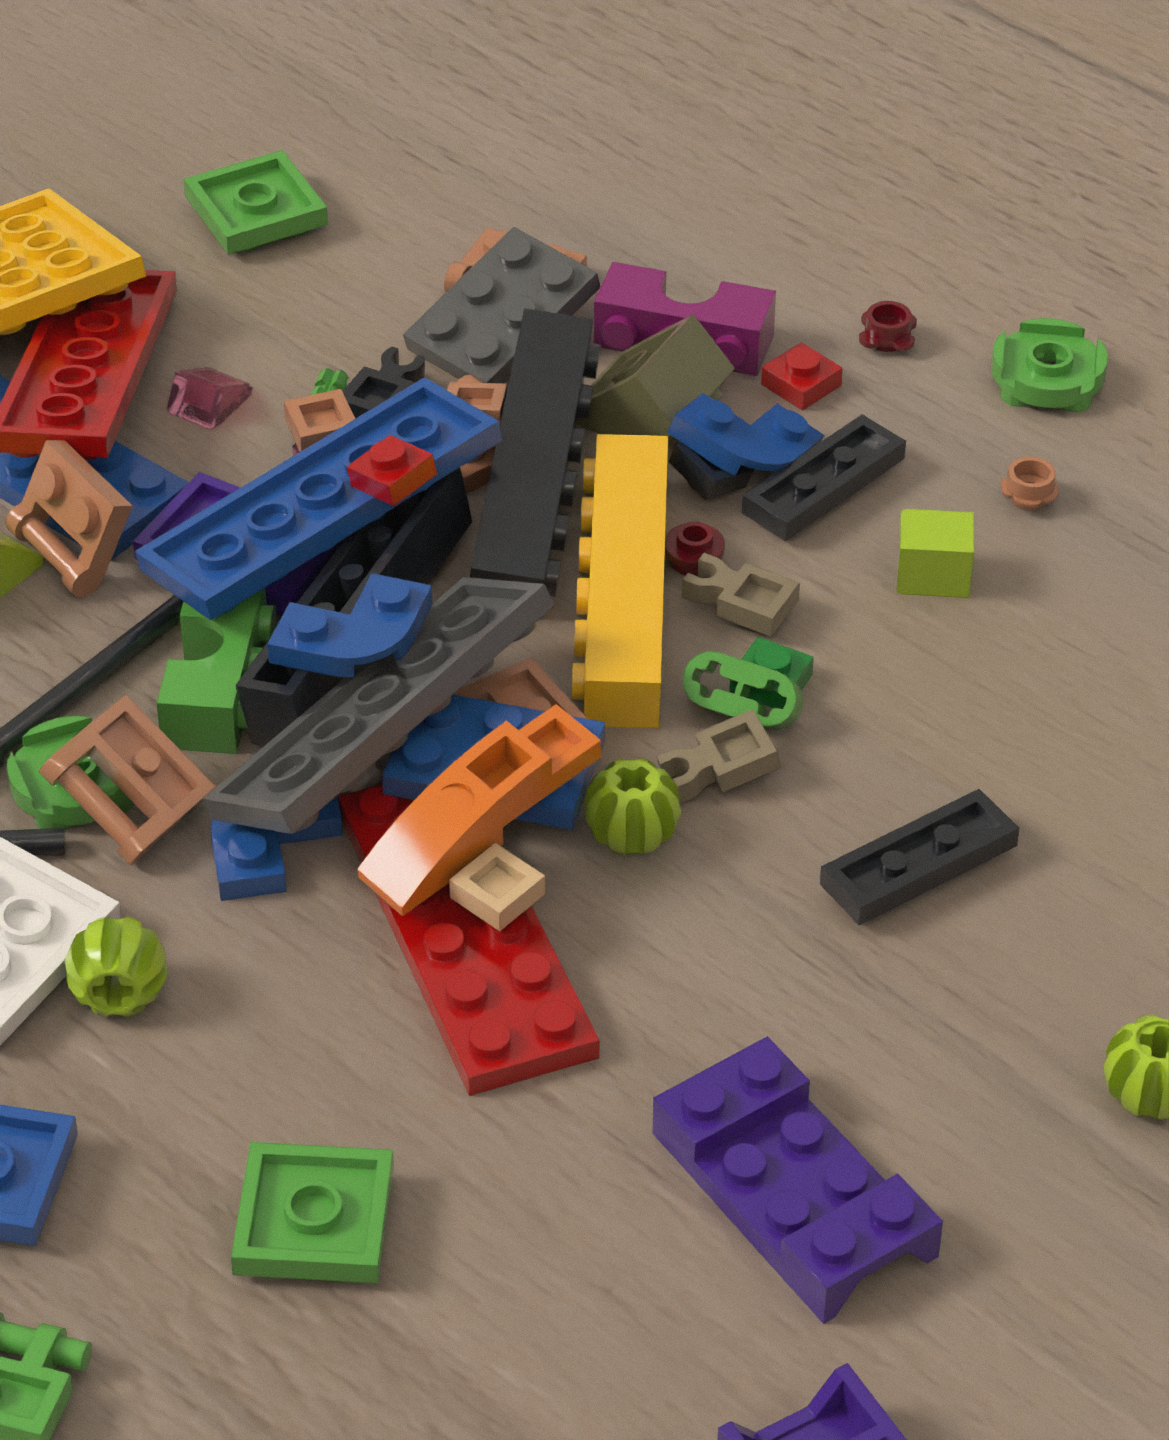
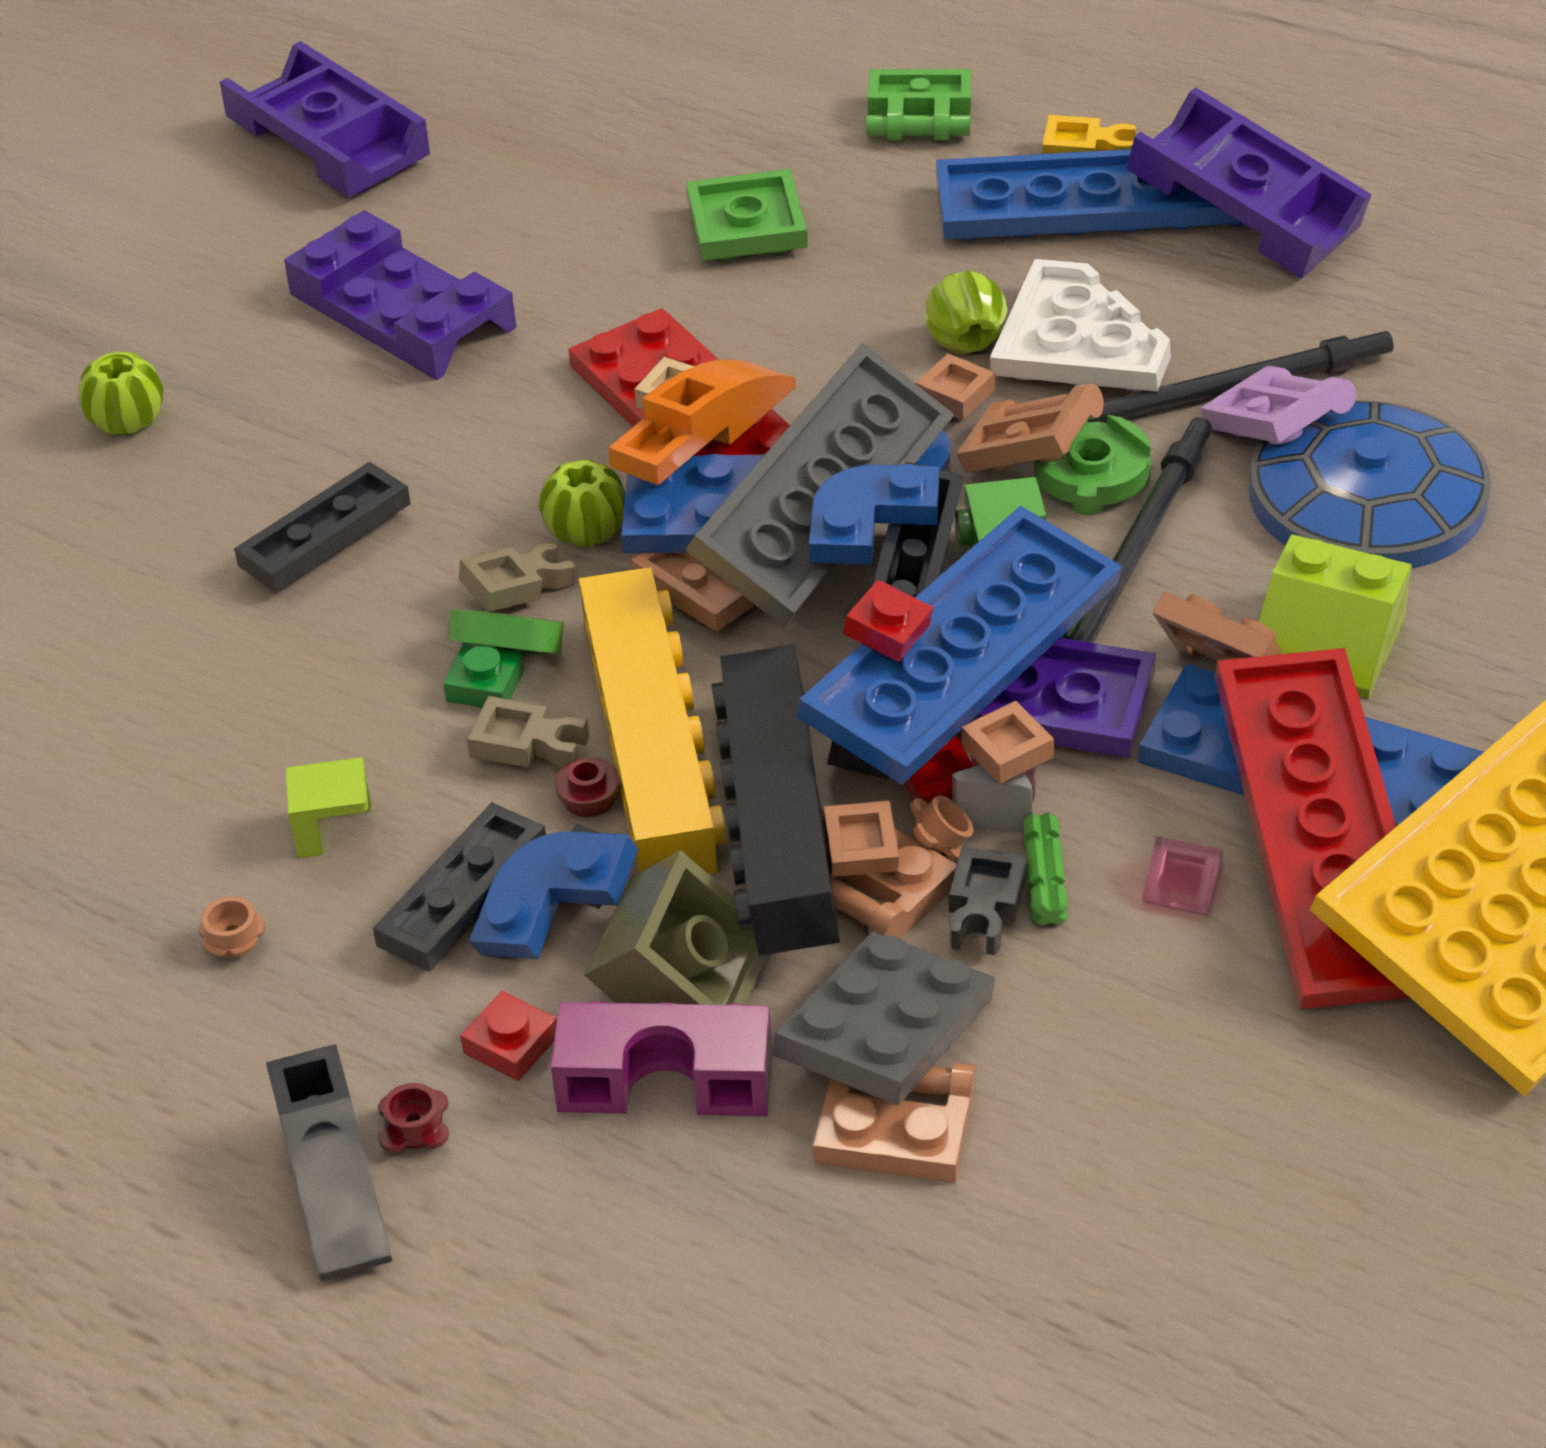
camera: 170 degrees right, 0 degrees up
(172, 889) = (958, 385): none -> nougat plate
(255, 202) = (1270, 1146): bright green plate -> none
(959, 299) = (328, 1162): none -> slope
(1067, 384) = (212, 1128): bright green plate -> none

